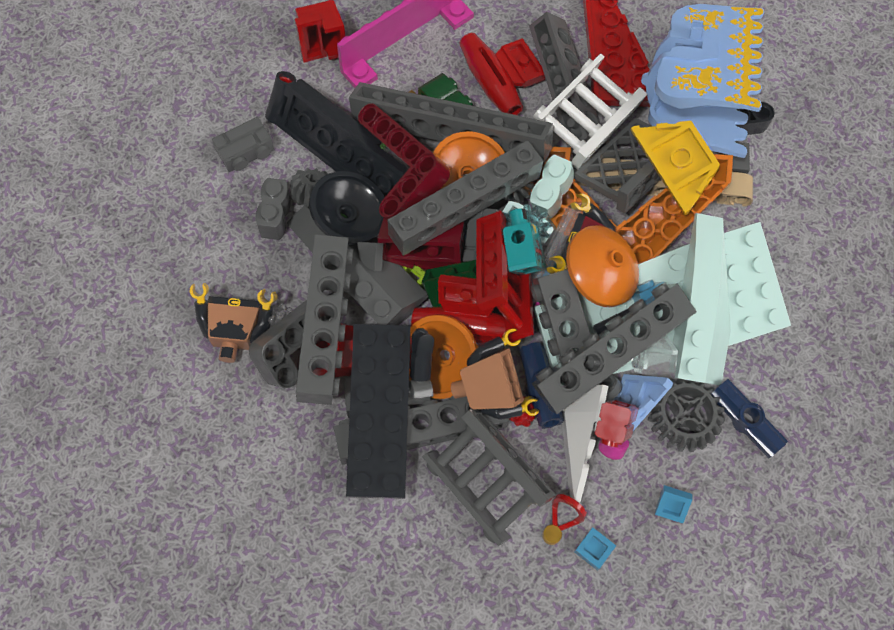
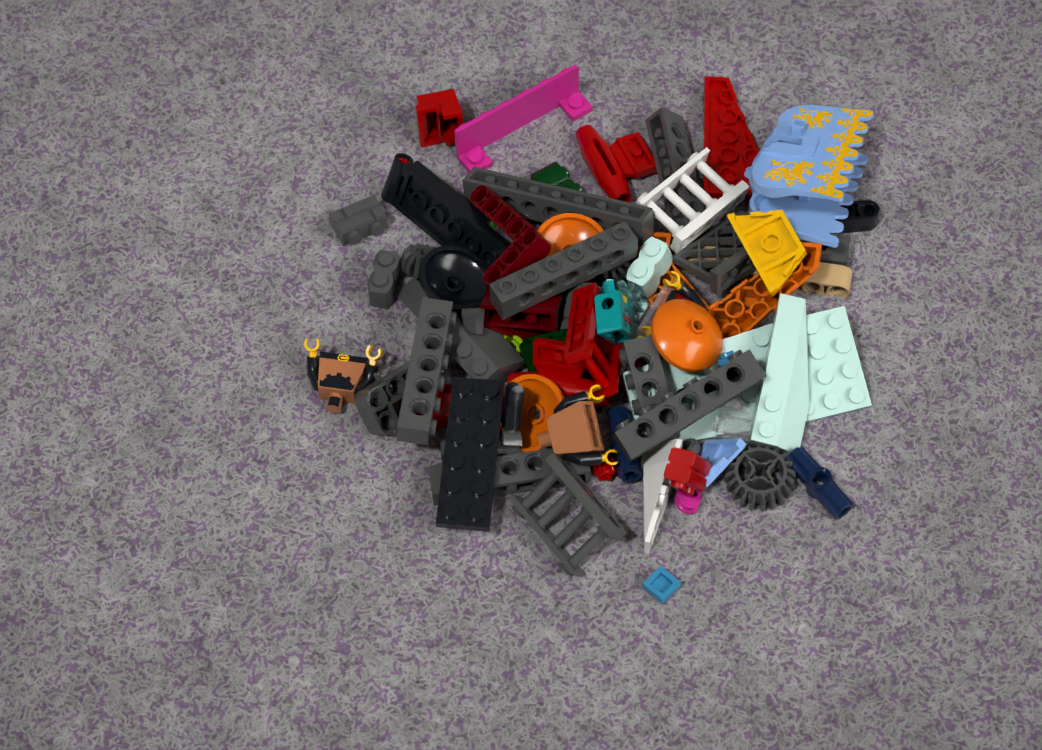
camera: 10 degrees right, 10 degrees down
(552, 533) = (624, 572): red piece -> none
(673, 504) = (738, 551): dark azure plate -> none

